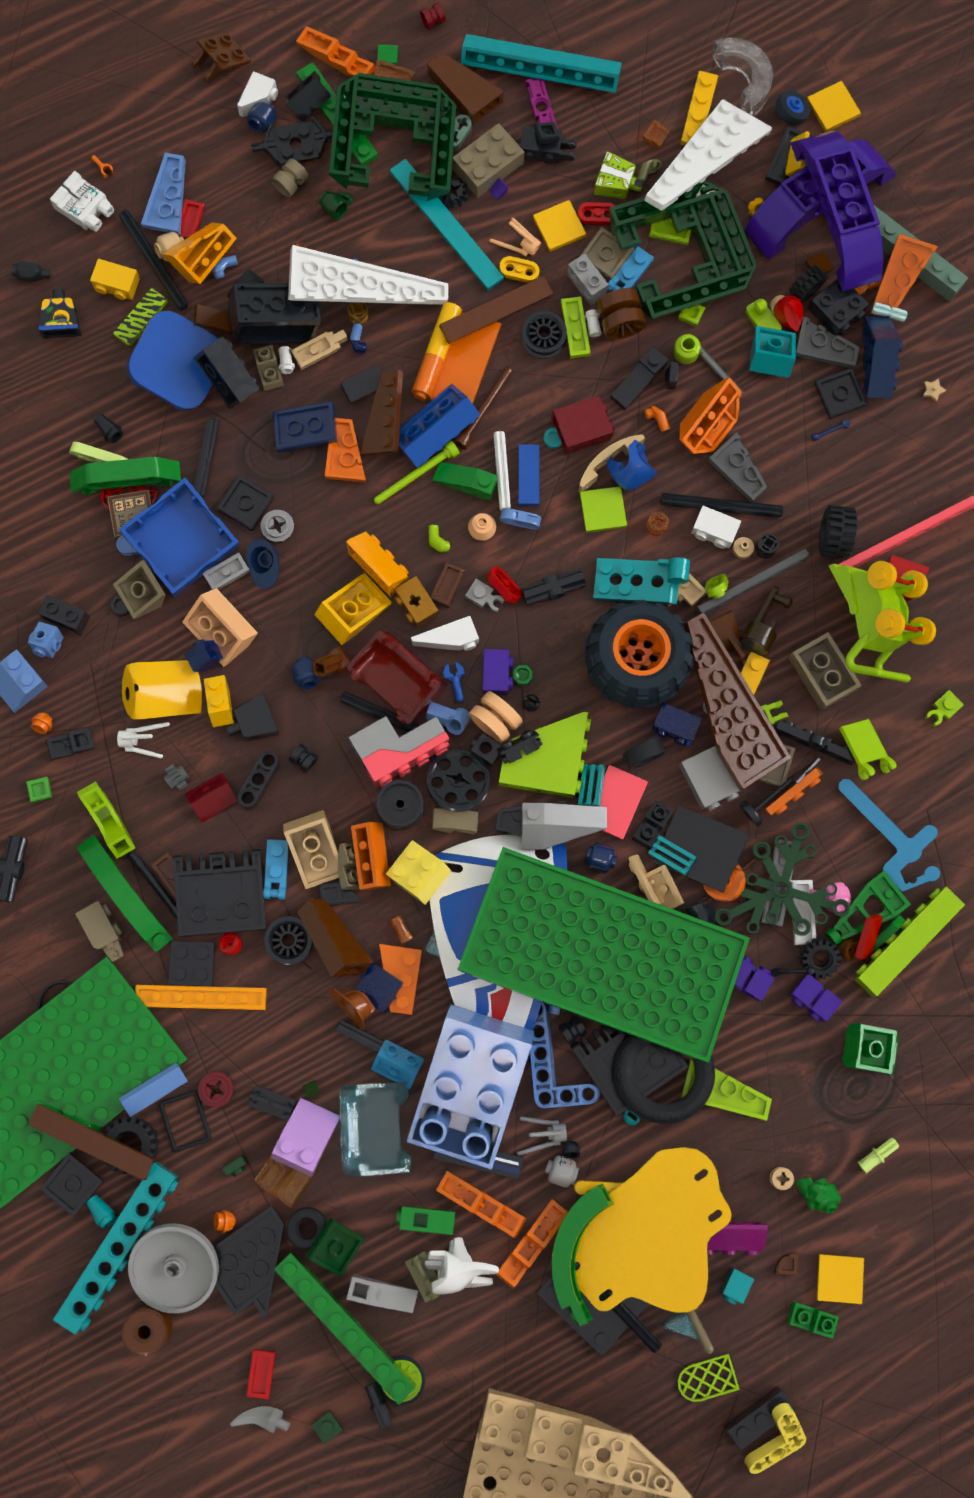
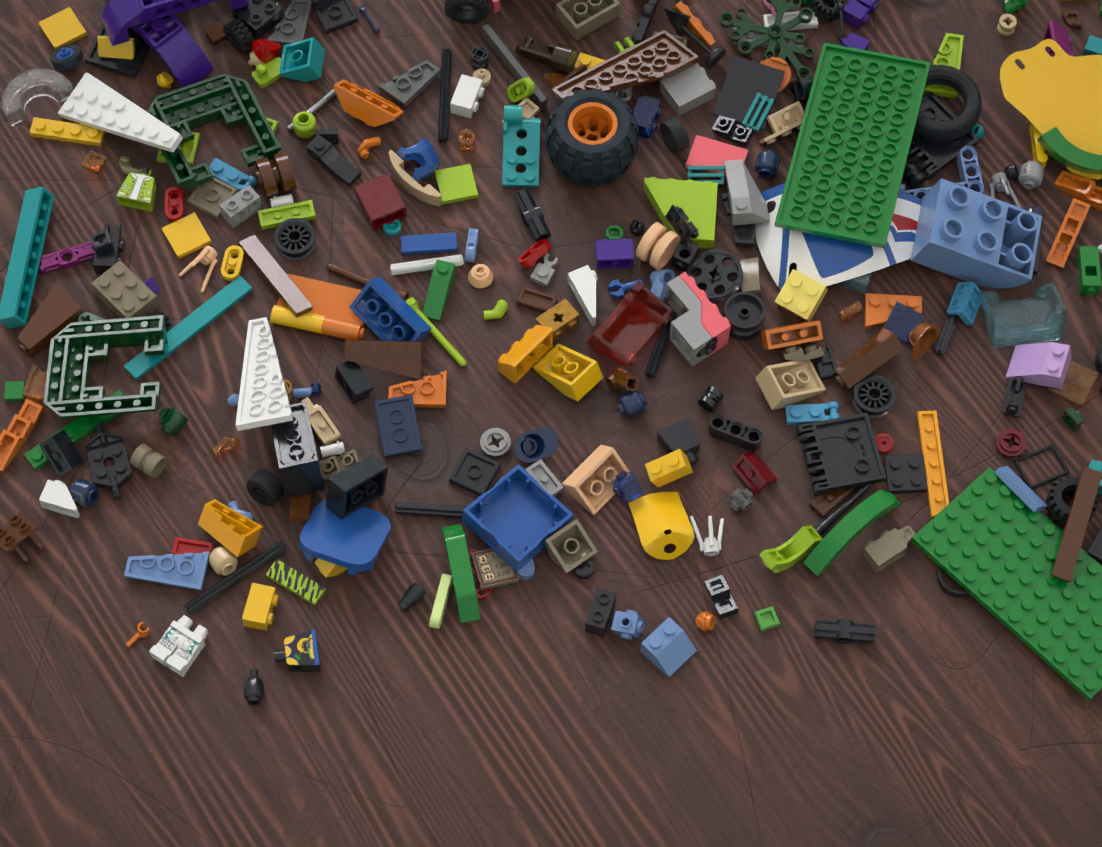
camera: 90 degrees left, 15 degrees down
(311, 1089) = (997, 368): dark green piece -> none

